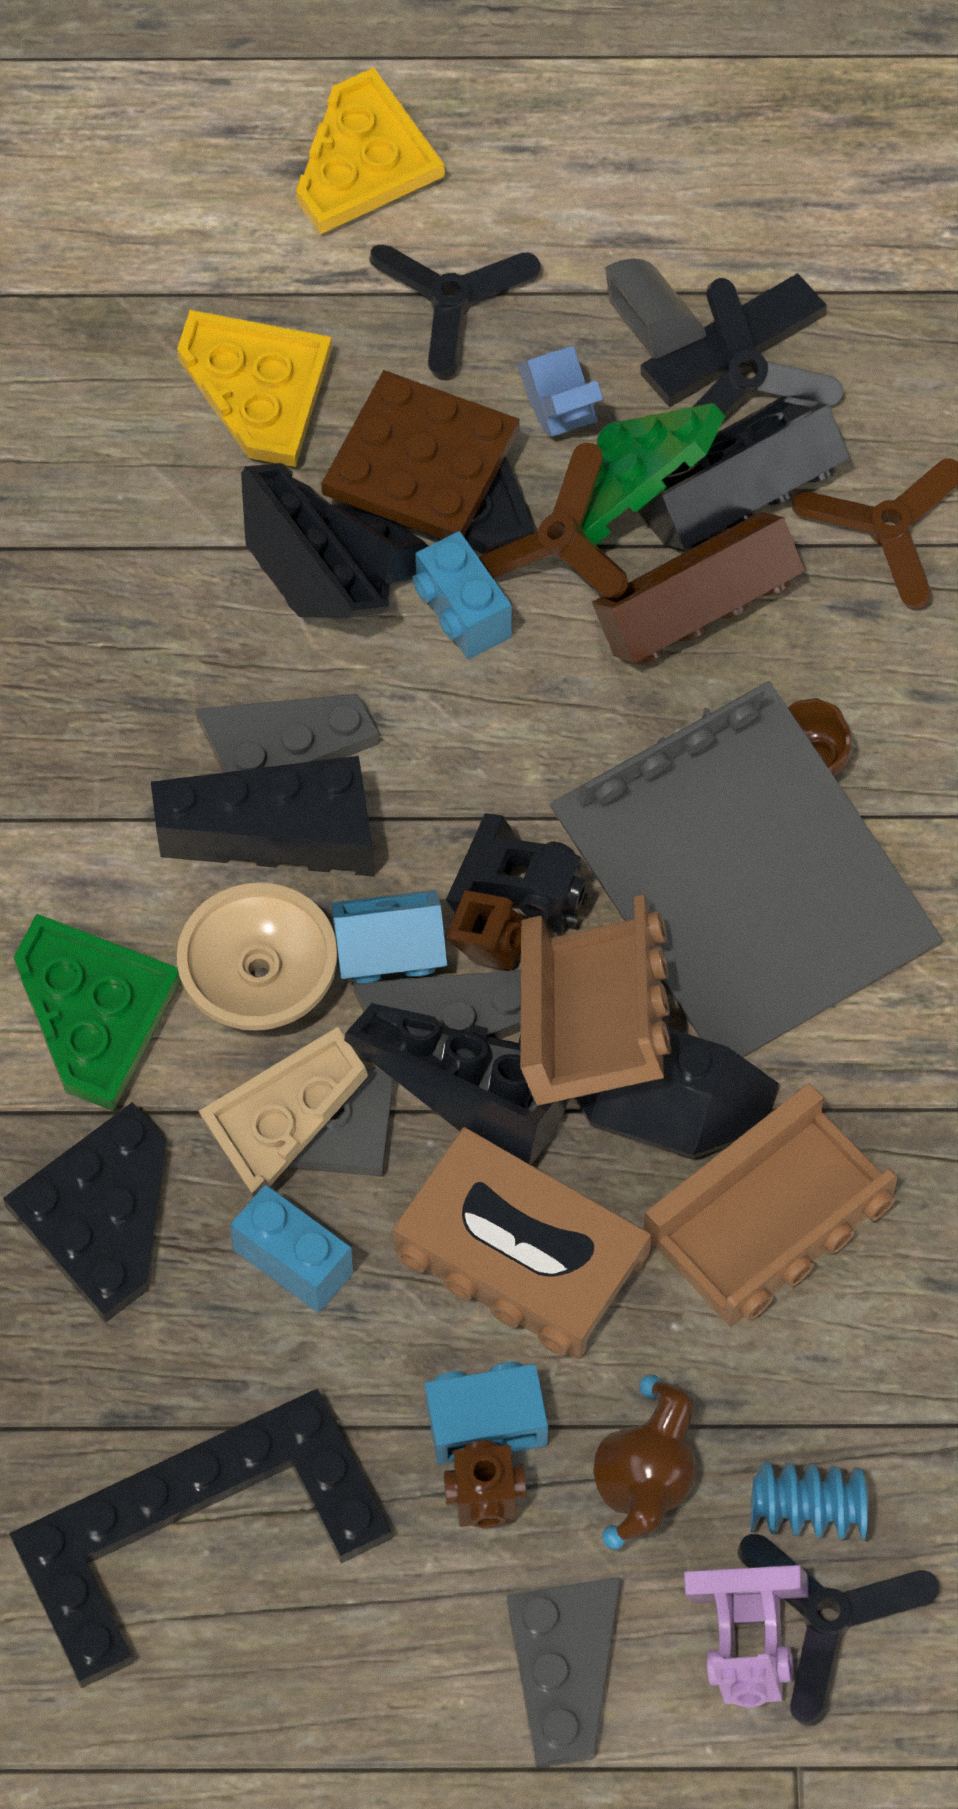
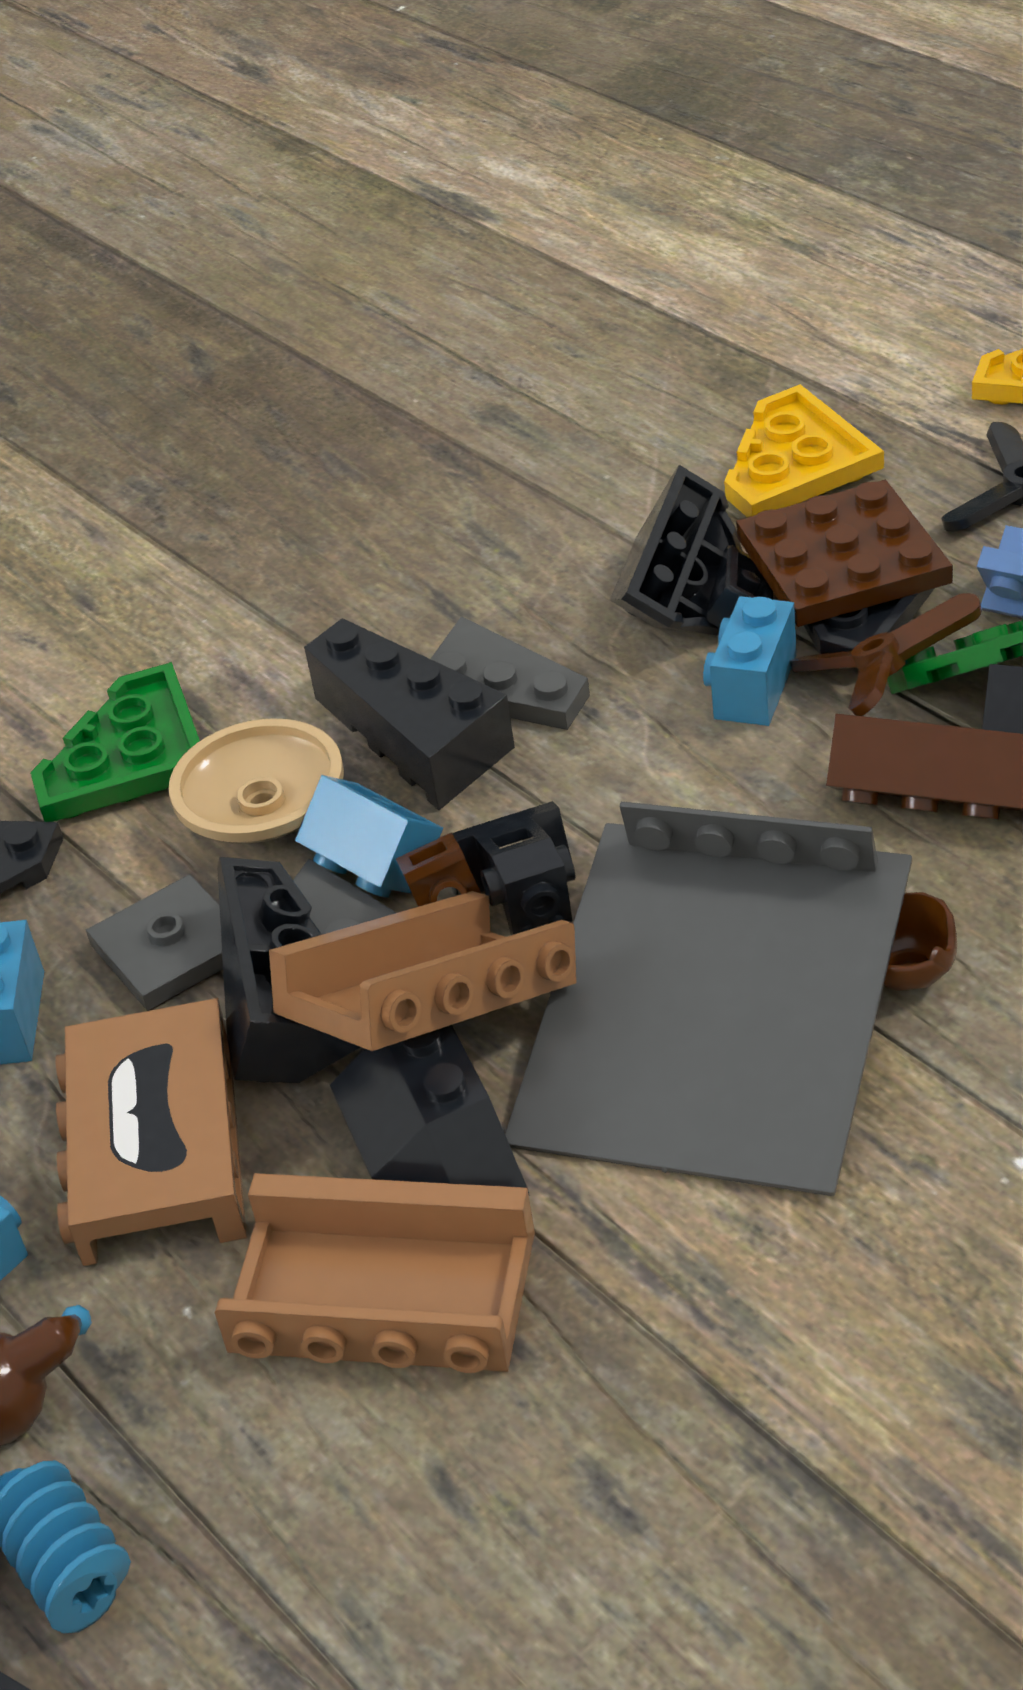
camera: 55 degrees right, 20 degrees down
(283, 1108) = (123, 891): tan wing -> none

